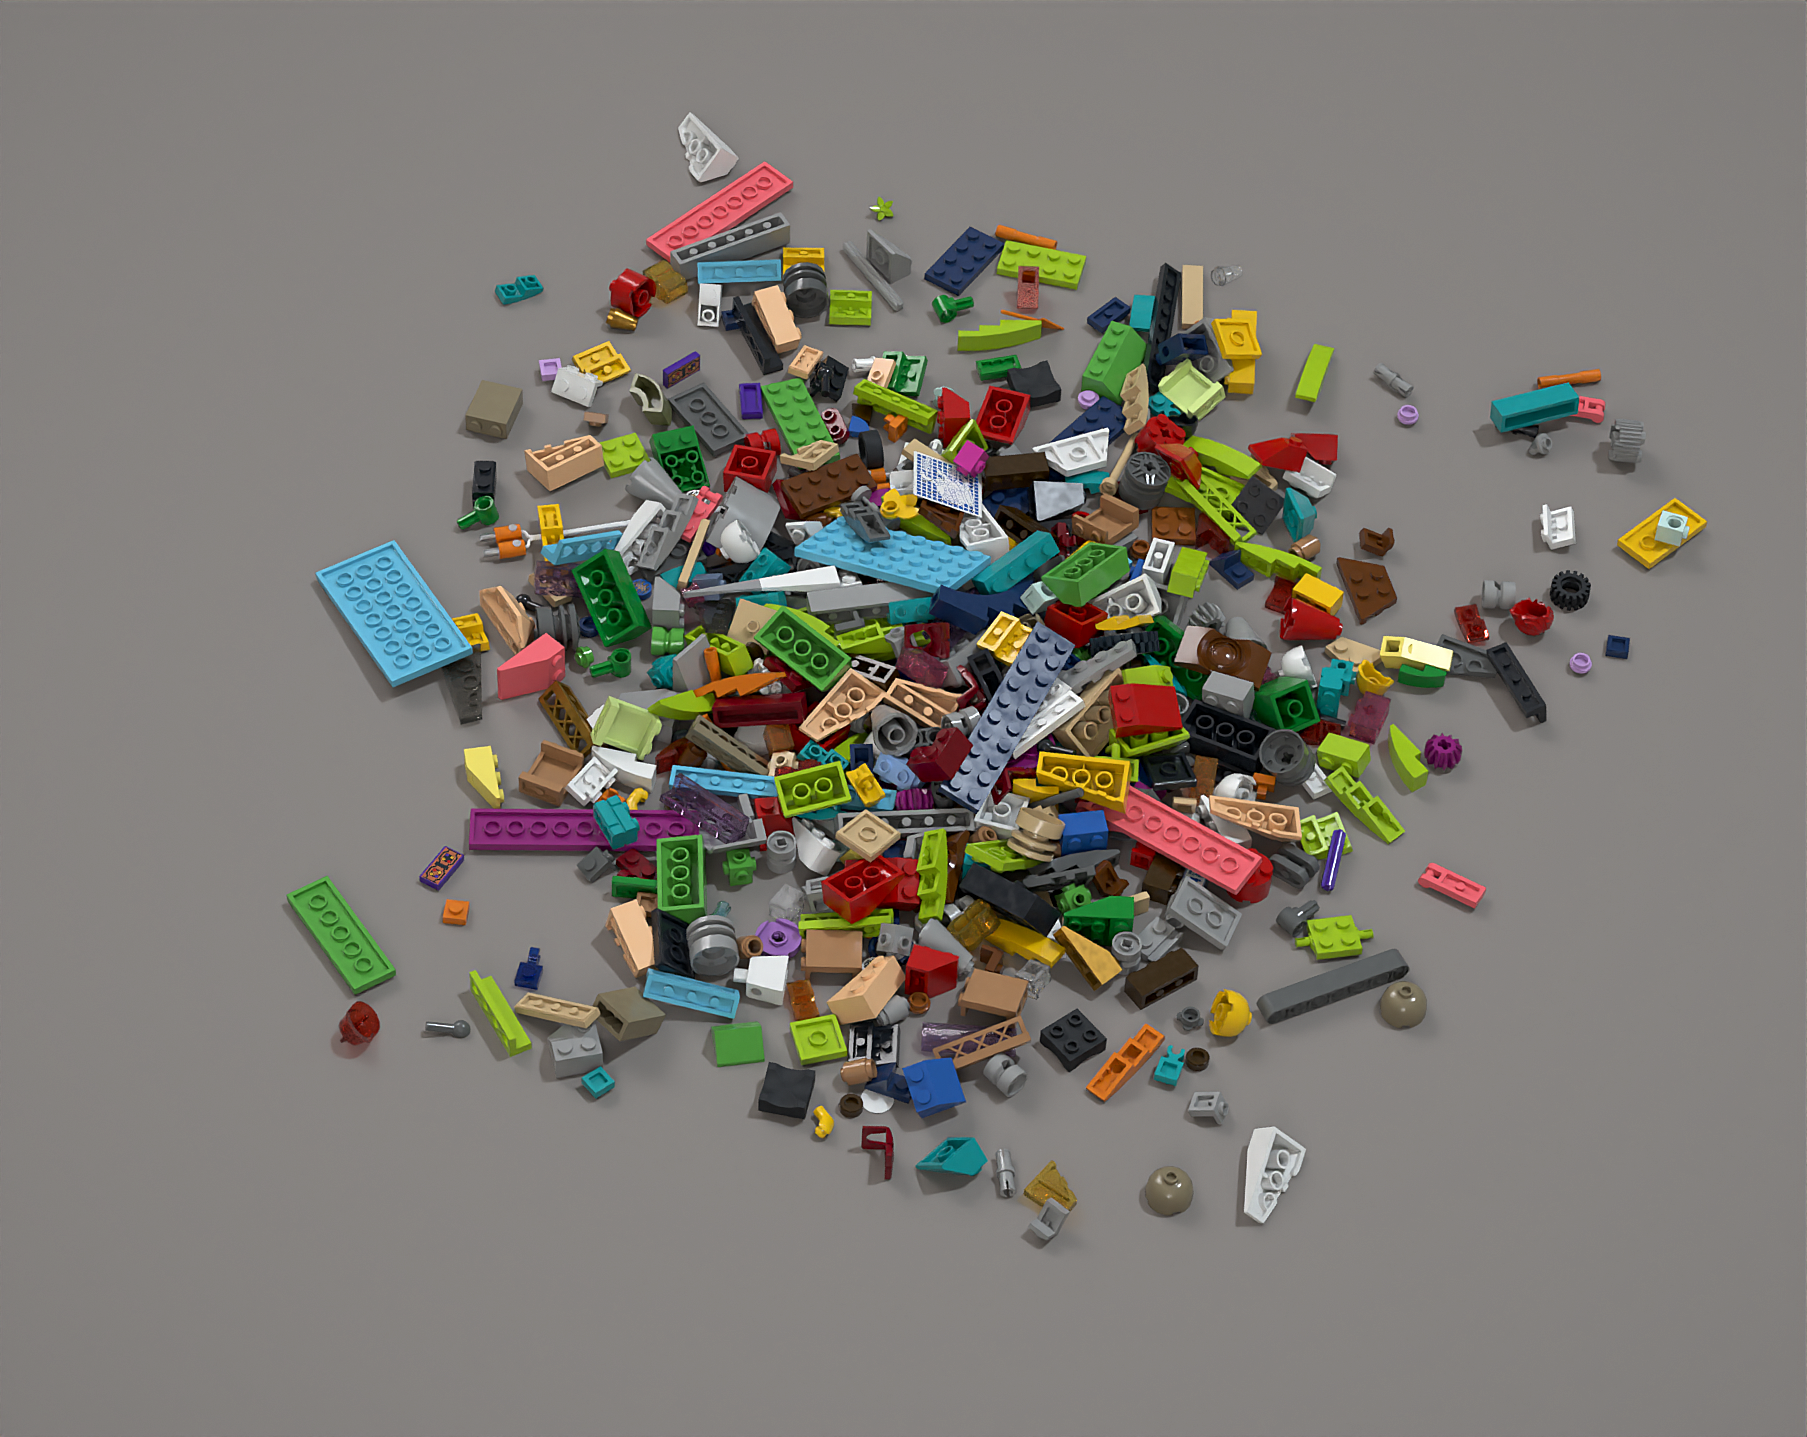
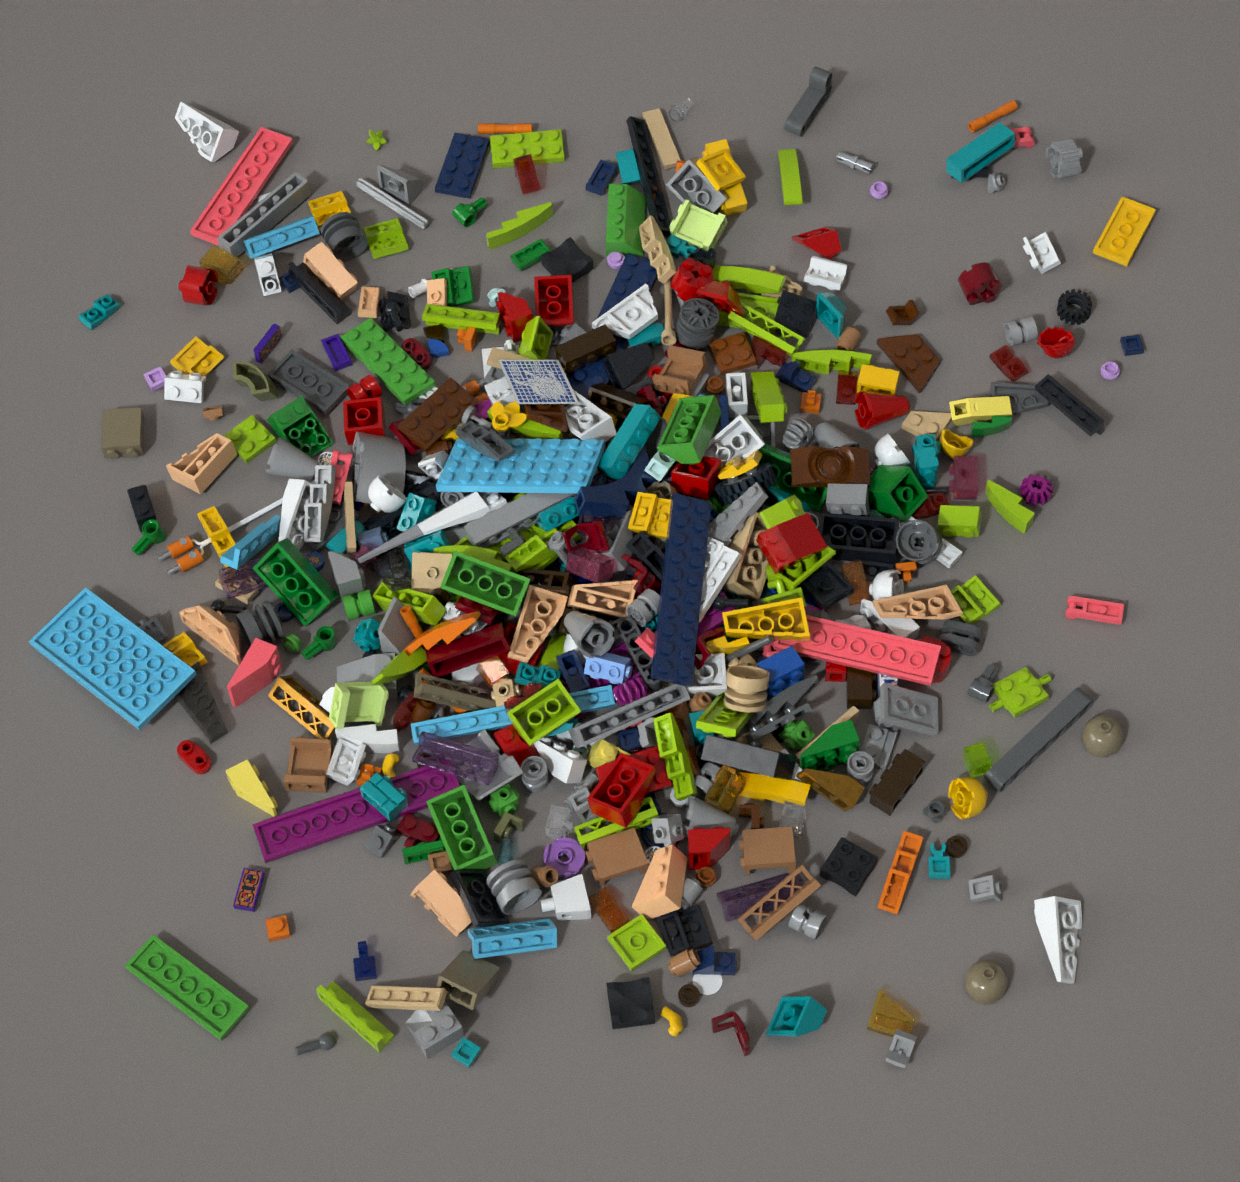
camera: 15 degrees left, 10 degrees up
(359, 1024) = (238, 1071): clear red piece -> none
(436, 727) = (193, 755): none -> red plate
(447, 599) = (153, 628): none -> dark grey bracket
(621, 320) = (198, 312): pearl gold cone -> none
(731, 889) = (506, 826): none -> olive bracket
(738, 1043) = (569, 969): bright green slope -> none
(811, 456) = (413, 392): tan wing -> none
(865, 785) = (585, 691): yellow hips -> none
(867, 835) = (608, 740): tan plate -> none
(871, 449) = (458, 367): black tyre -> none
(934, 1086) = (755, 956): blue slope -> none
(942, 758) = (645, 650): dark red brick -> none
(970, 459) = (549, 353): dark pink brick -> none
(1005, 1172) = (844, 1014): light grey pin -> none
(1045, 323) = (553, 201): orange piece -> none
(1107, 880) = (820, 707): reddish brown bracket -> none
(1173, 352) = (675, 196): dark blue torso -> none
(1185, 805) = (851, 613): tan slope -> none
(1236, 597) = (810, 402): none -> orange tile
(1255, 982) = (976, 759): none -> clear neon green panel
(1280, 453) = (795, 261): red slope -> none
(1333, 860) = (990, 621): dark purple axle -> none
(1368, 810) = (993, 561): lime slope -> none
(1371, 307) = (811, 102): none -> dark grey beam
(1473, 535) = (980, 283): none -> dark red brick
(1672, 528) = (1134, 226): light aqua brick -> none

